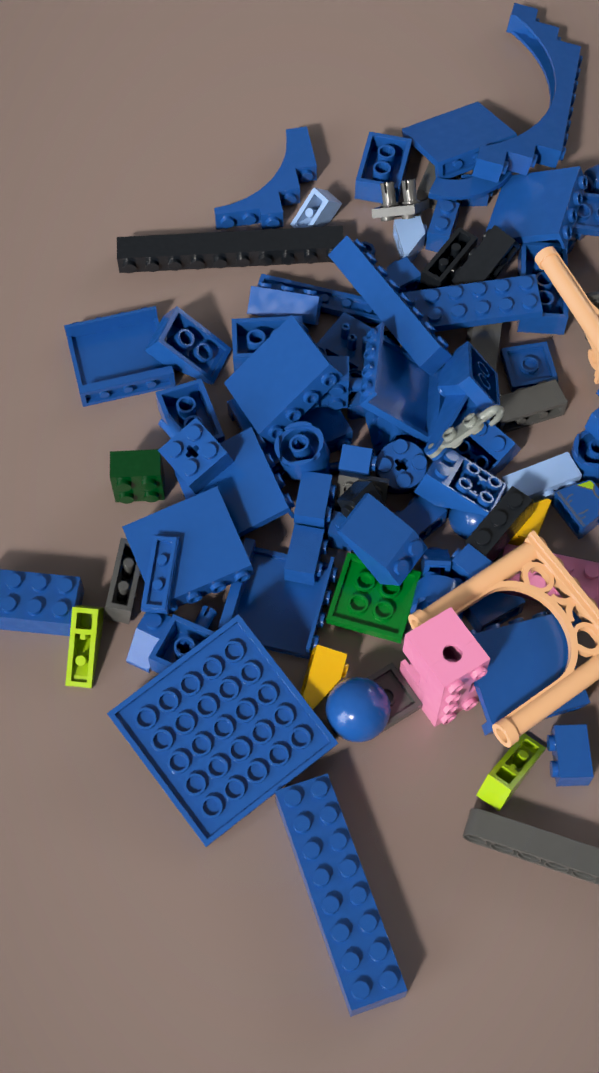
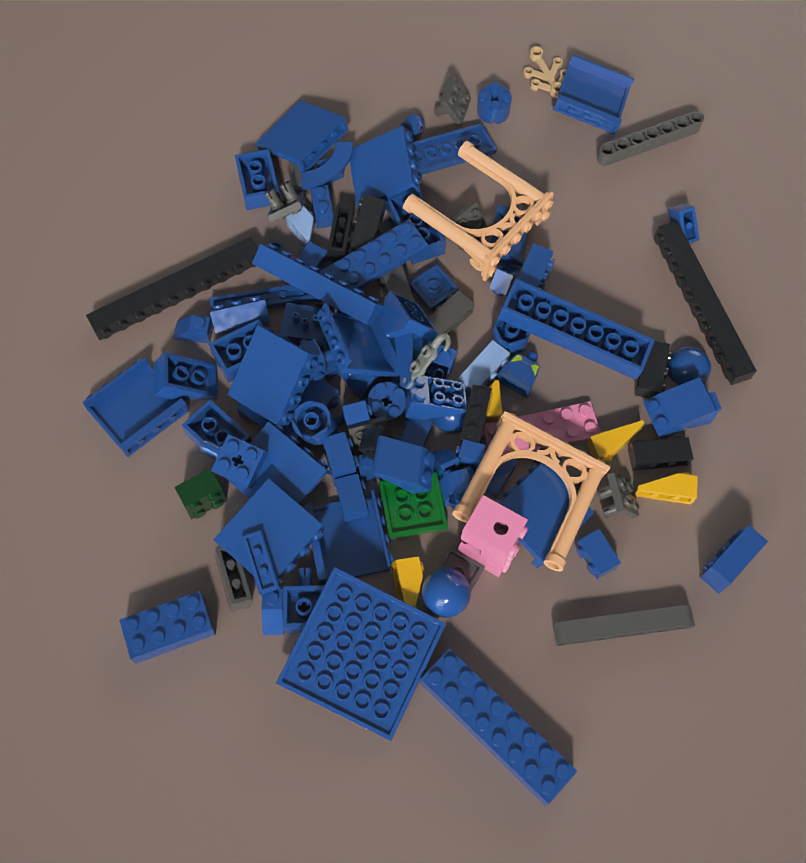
camera: 30 degrees left, 5 degrees up
(84, 645) = (227, 638): lime slope -> none
(227, 300) = (194, 329): none -> blue slope
(282, 190) = (184, 242): blue arch -> none
(317, 209) = (224, 232): light blue slope -> none
(510, 772) = (565, 587): lime slope -> none
(546, 139) = (344, 49): blue arch -> none

